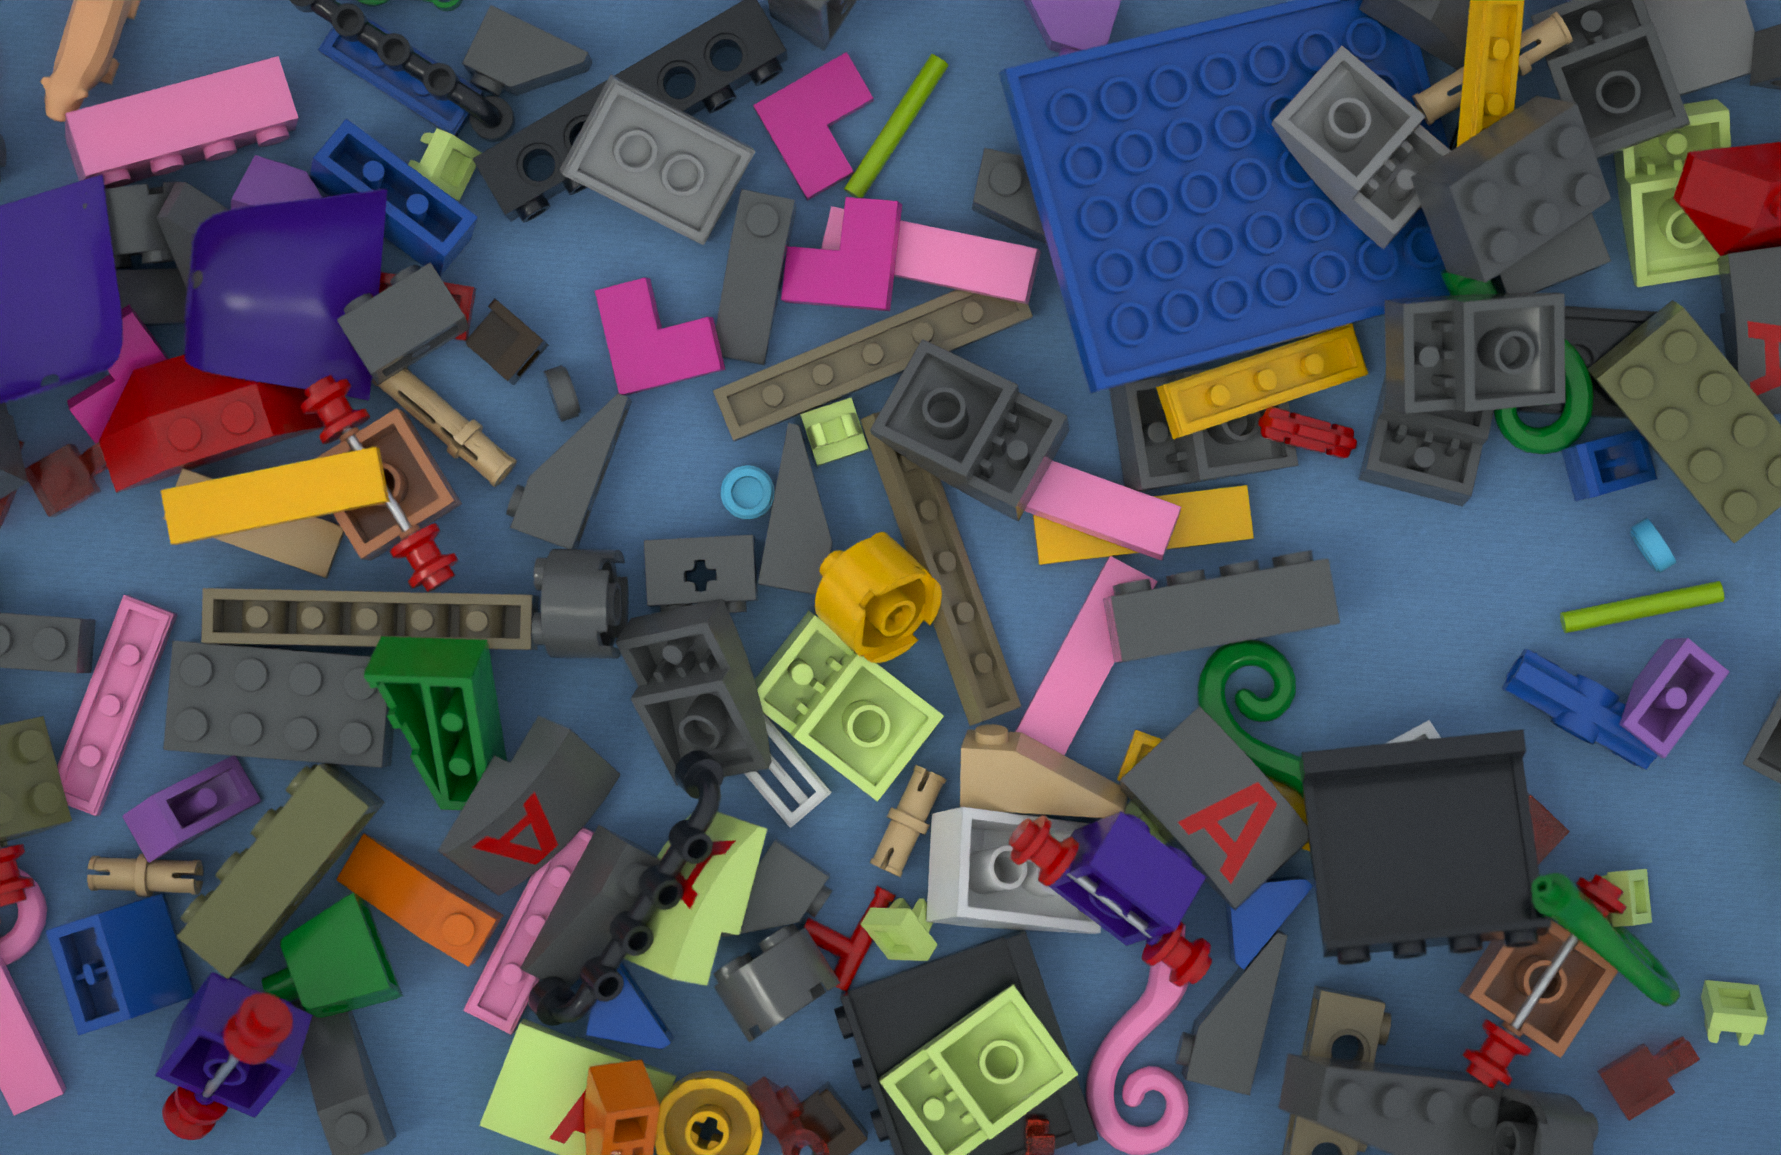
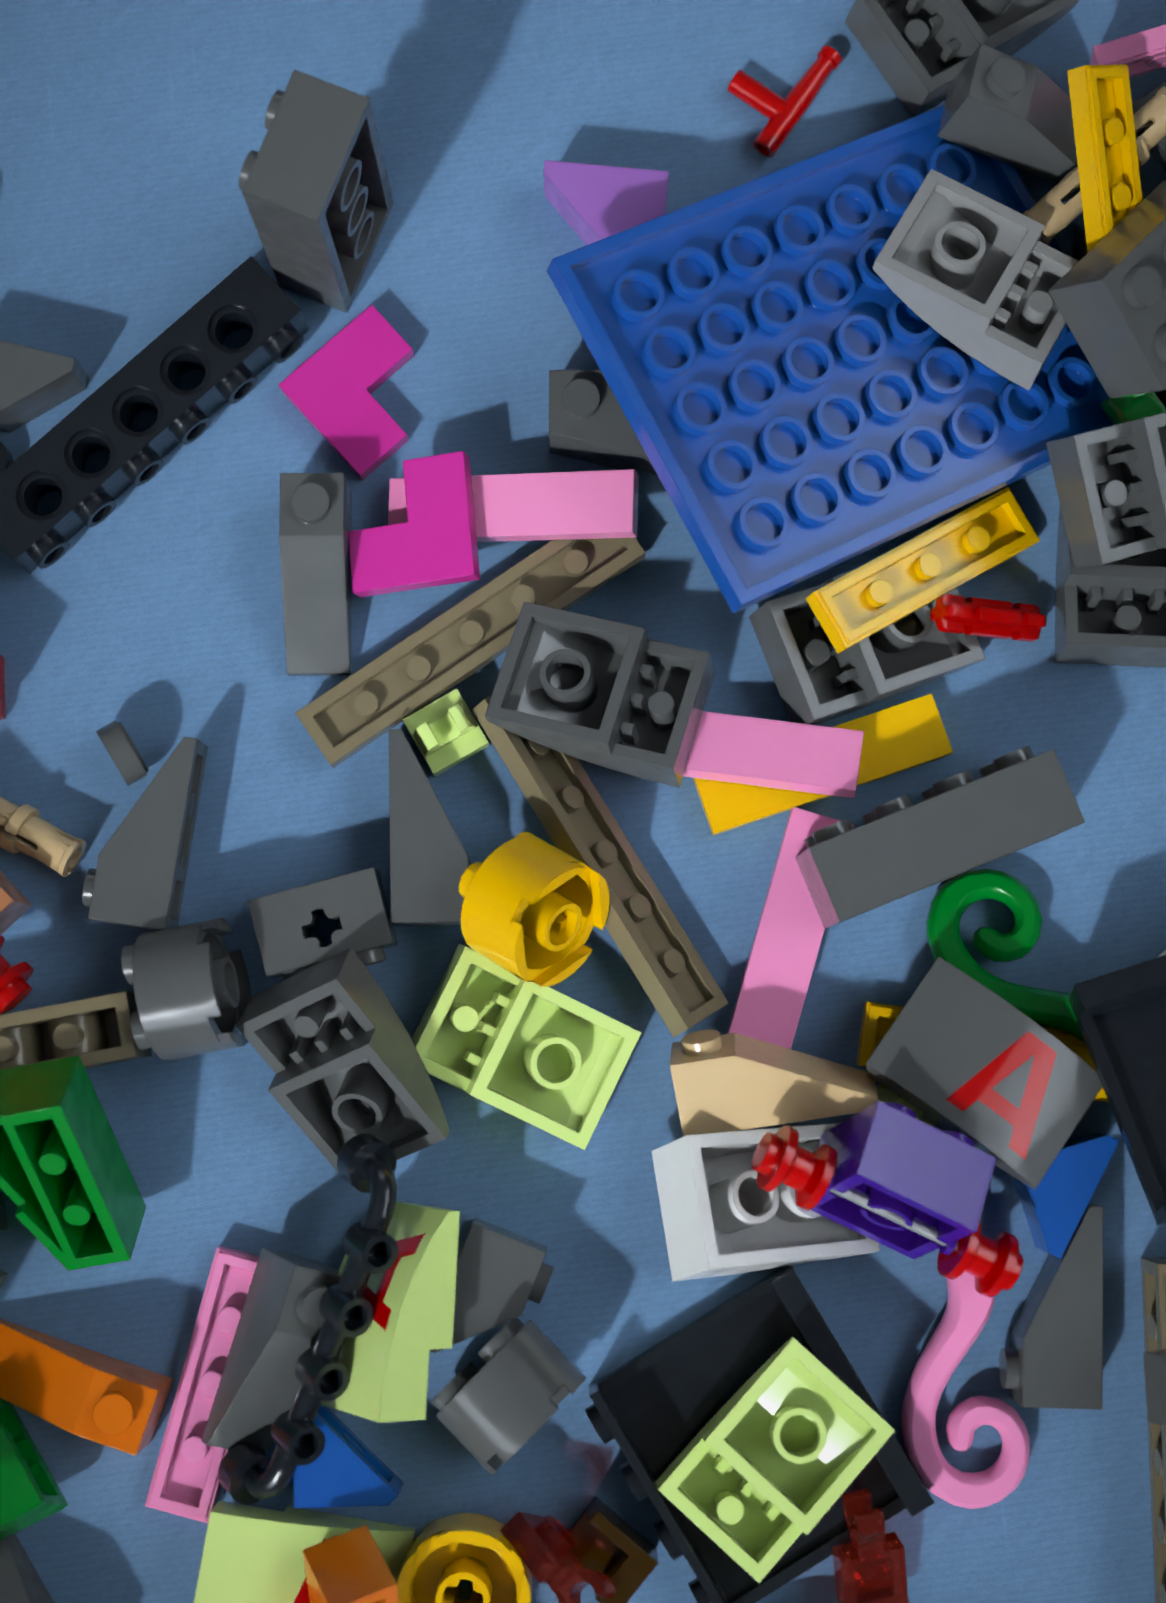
camera: 10 degrees left, 5 degrees down
(506, 343) = (49, 709): dark brown panel -> none
(528, 807) = (169, 1246): dark grey slope -> none
(644, 352) = (214, 687): dark pink tile -> none
(657, 160) = (177, 463): light grey tile -> none
(747, 492) = (360, 823): medium azure tile -> none
(806, 804) = (483, 1123): white tile -> none
(851, 949) = (593, 1332): red piece -> none
(896, 126) = (446, 375): lime bar -> none
(901, 930) = (645, 1298): yellowish green tile -> none
(908, 821) = (625, 1165): tan pin -> none

